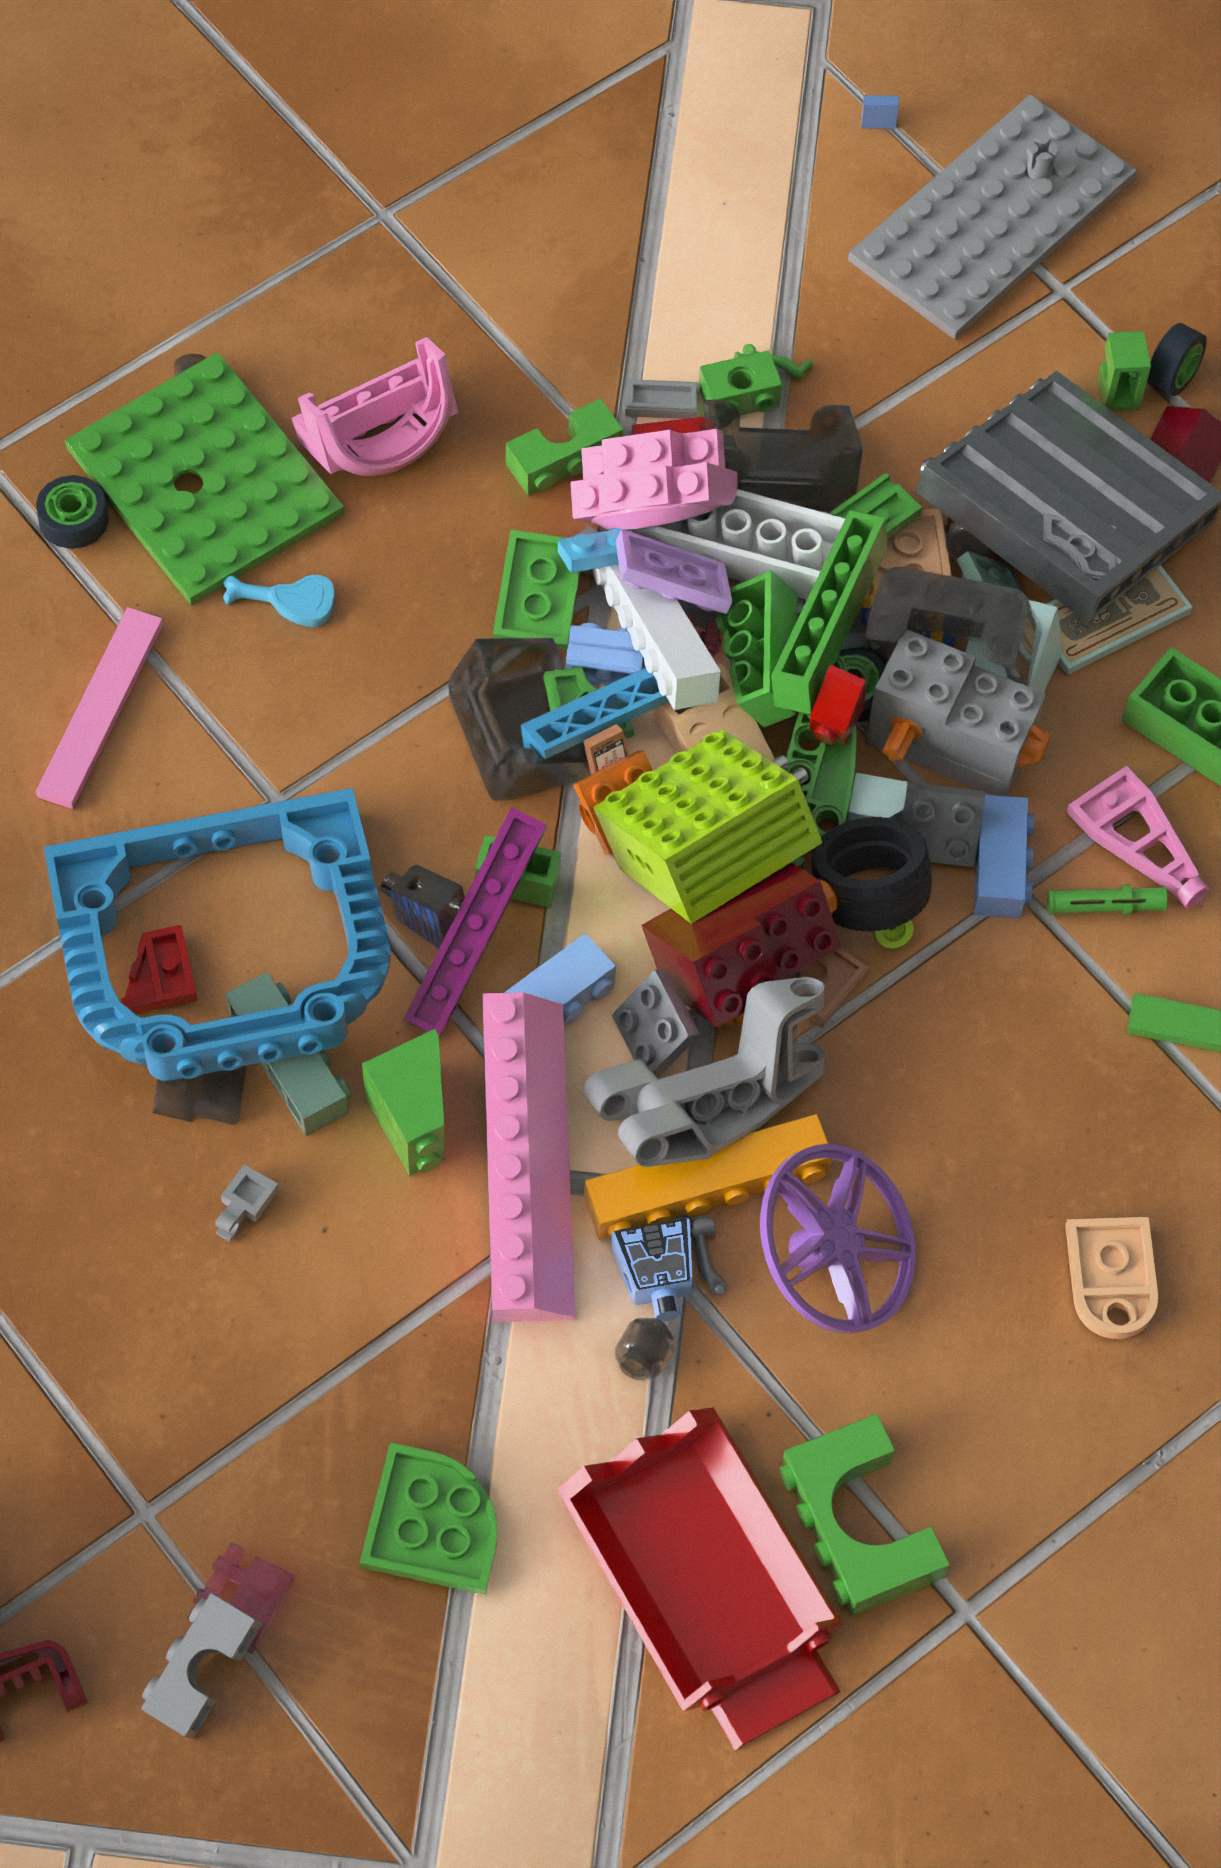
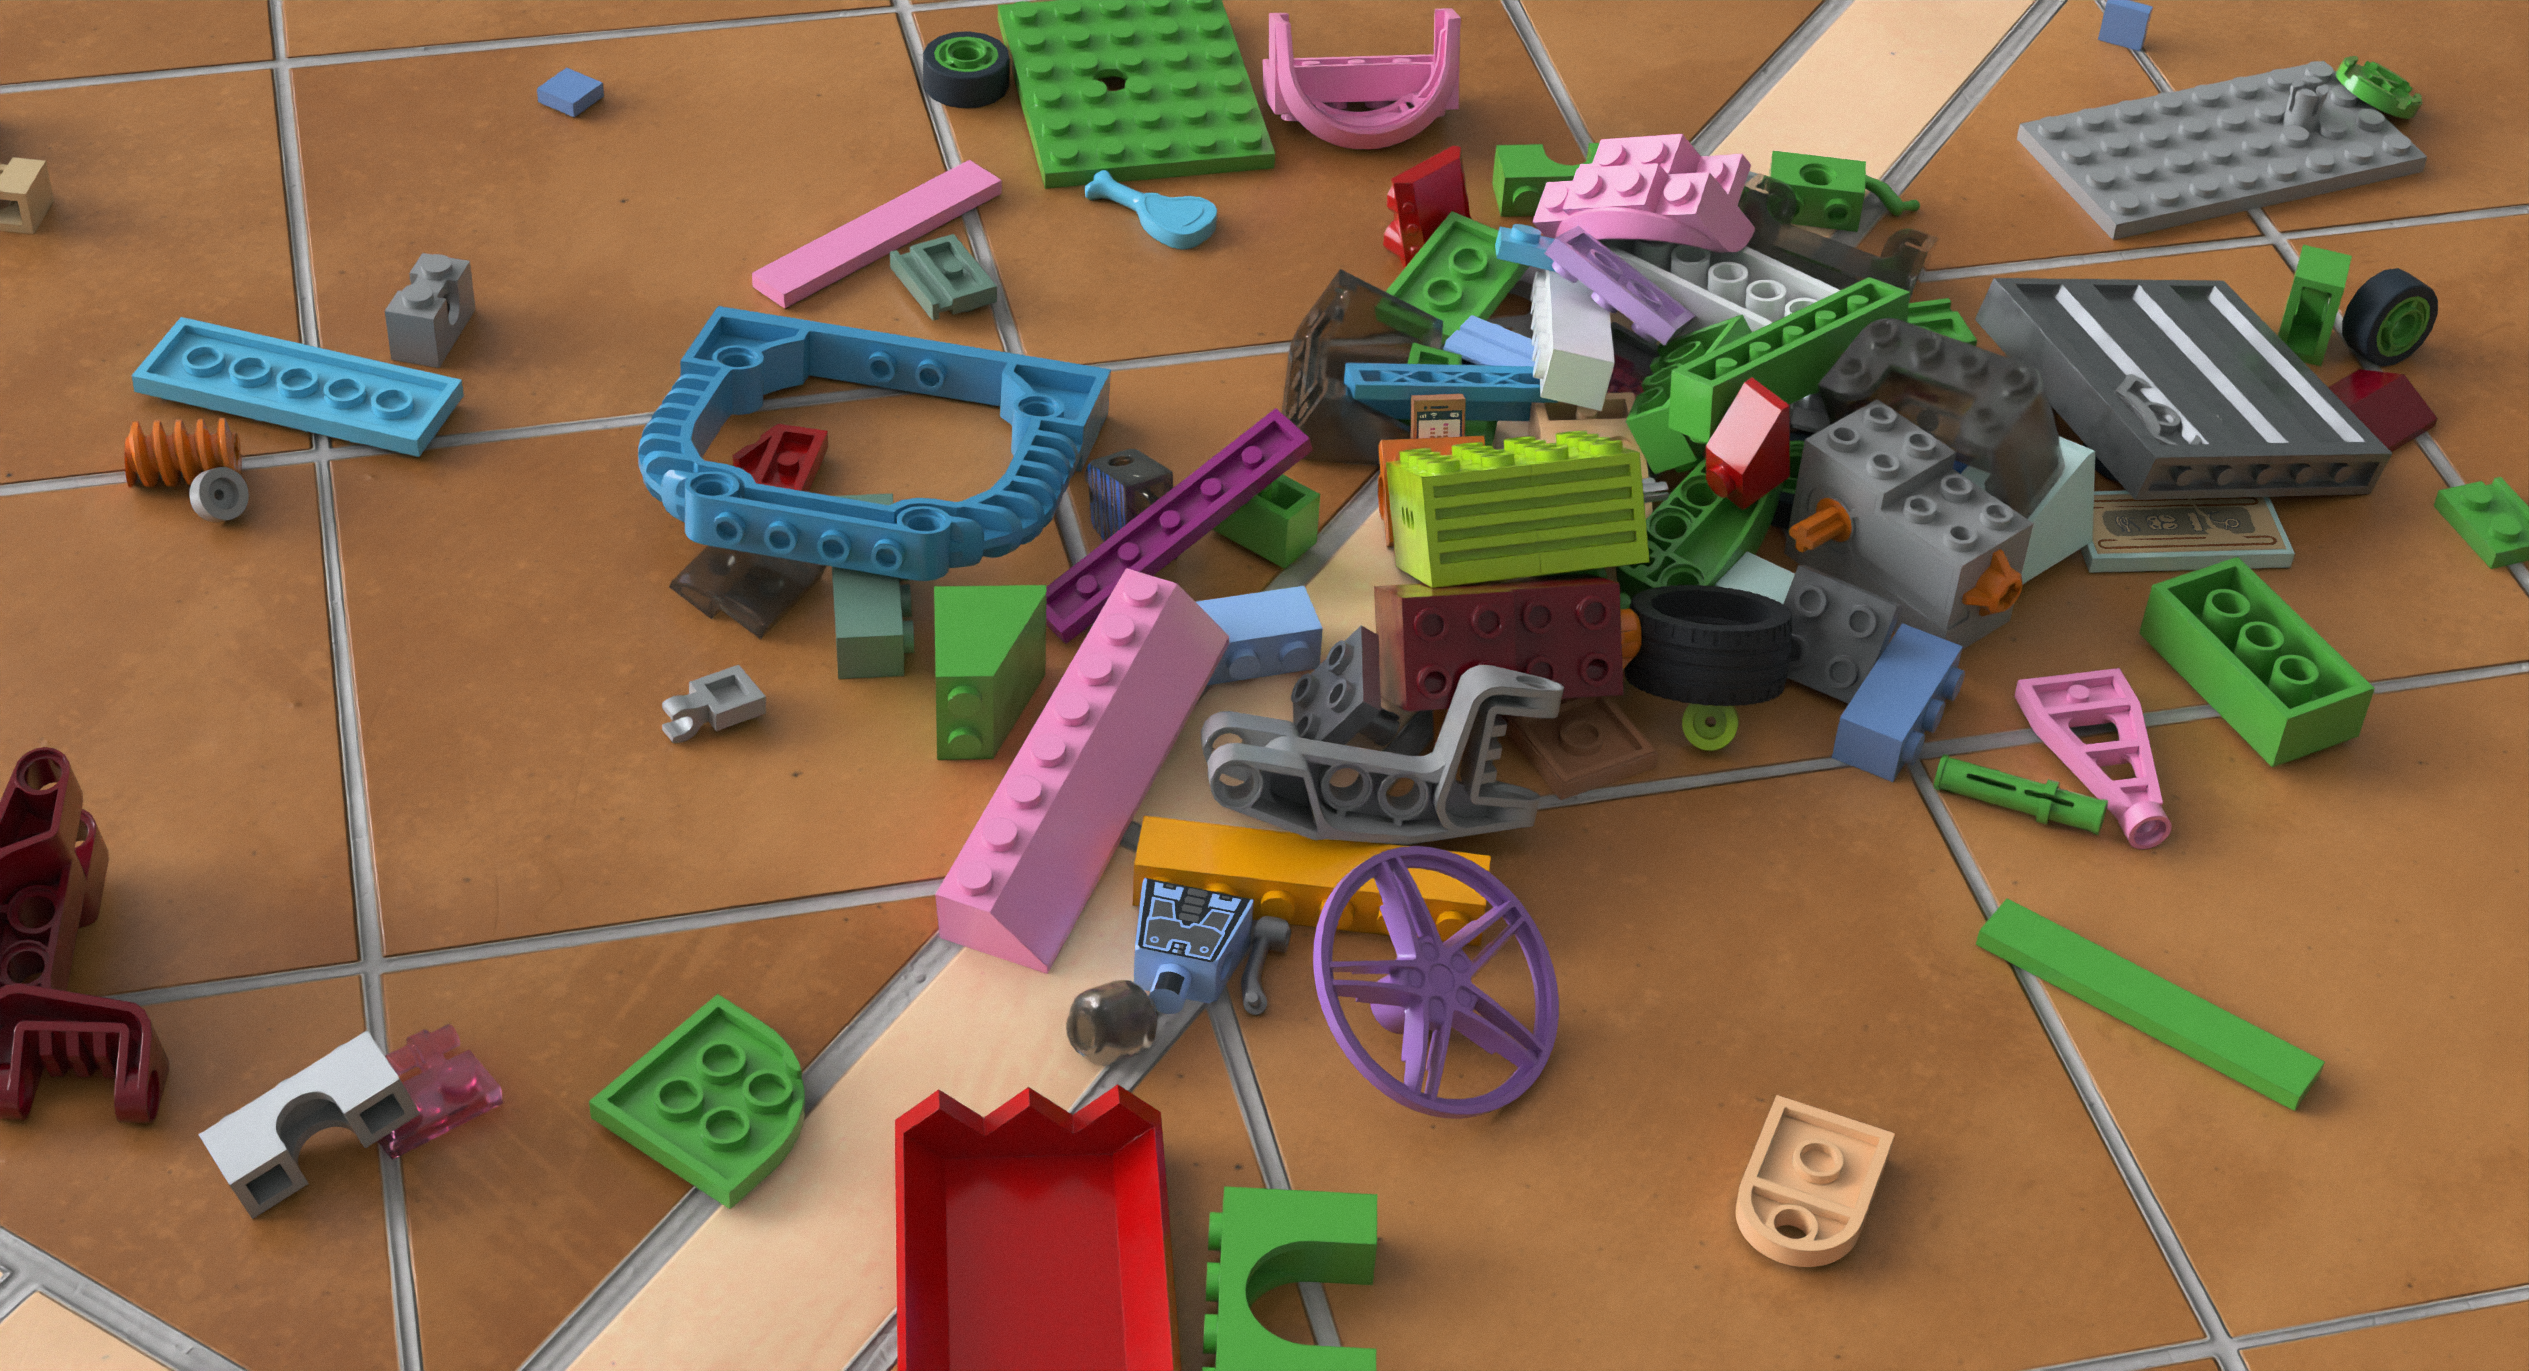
camera: 25 degrees right, 20 degrees down
(174, 735) = (943, 277): none -> sand green plate
(490, 533) = (1423, 200): none -> red slope
(1079, 111) = (2379, 87): none -> bright green tile

